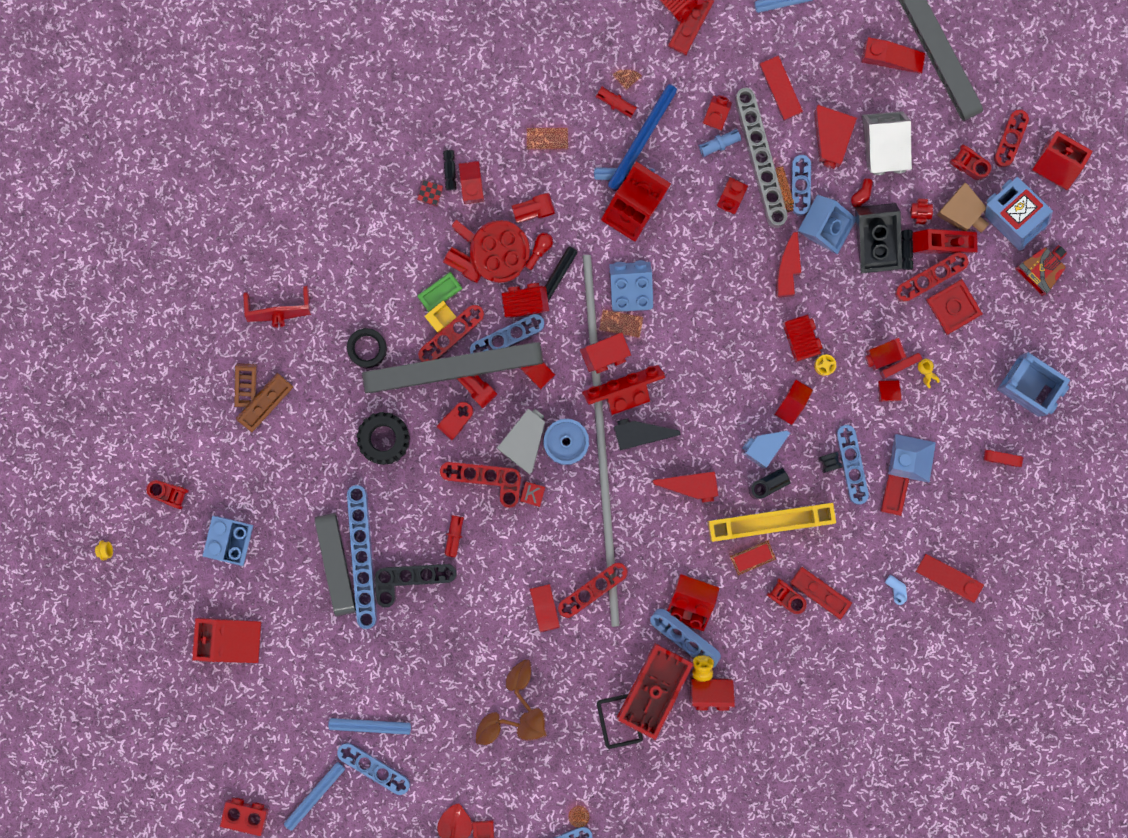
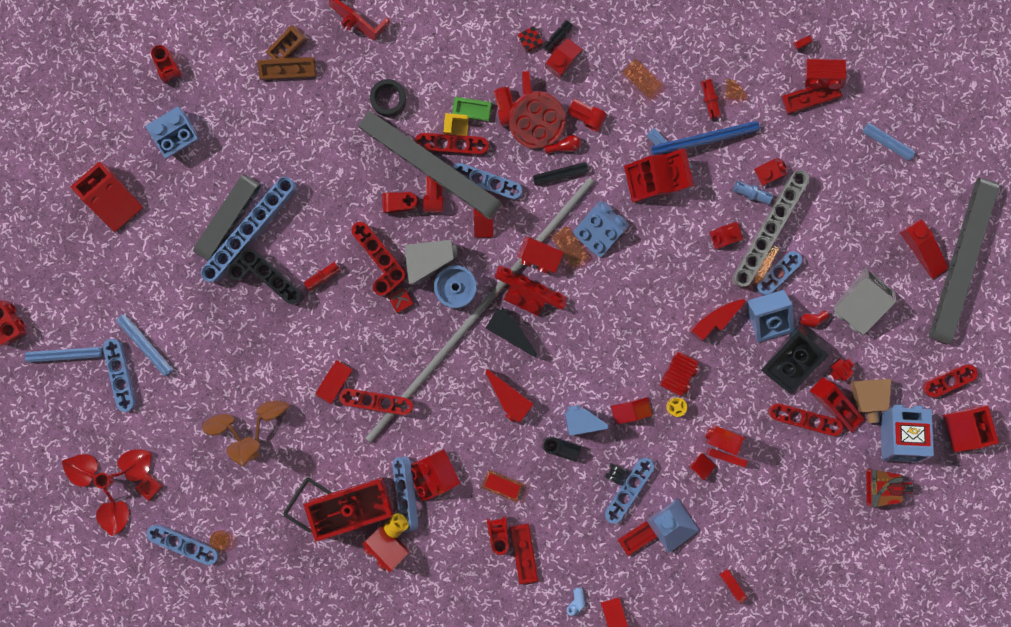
camera: 50 degrees right, 0 degrees up
(104, 550) = (89, 61): yellow plate -> none
(365, 433) = (330, 153): black tyre -> none
(525, 301) = (520, 169): red brick -> none
(771, 522) = (538, 475): yellow arch -> none
(781, 88) = (829, 196): red tile -> none
(833, 135) = (833, 260): red slope -> none
(907, 249) = (807, 385): black axle -> none
(926, 367) = (742, 475): yellow arm -> none
(954, 307) = (800, 454): red tile -> none
(970, 162) = (906, 369): red piece -> none
(1027, 380) = (803, 550): medium blue container -> none

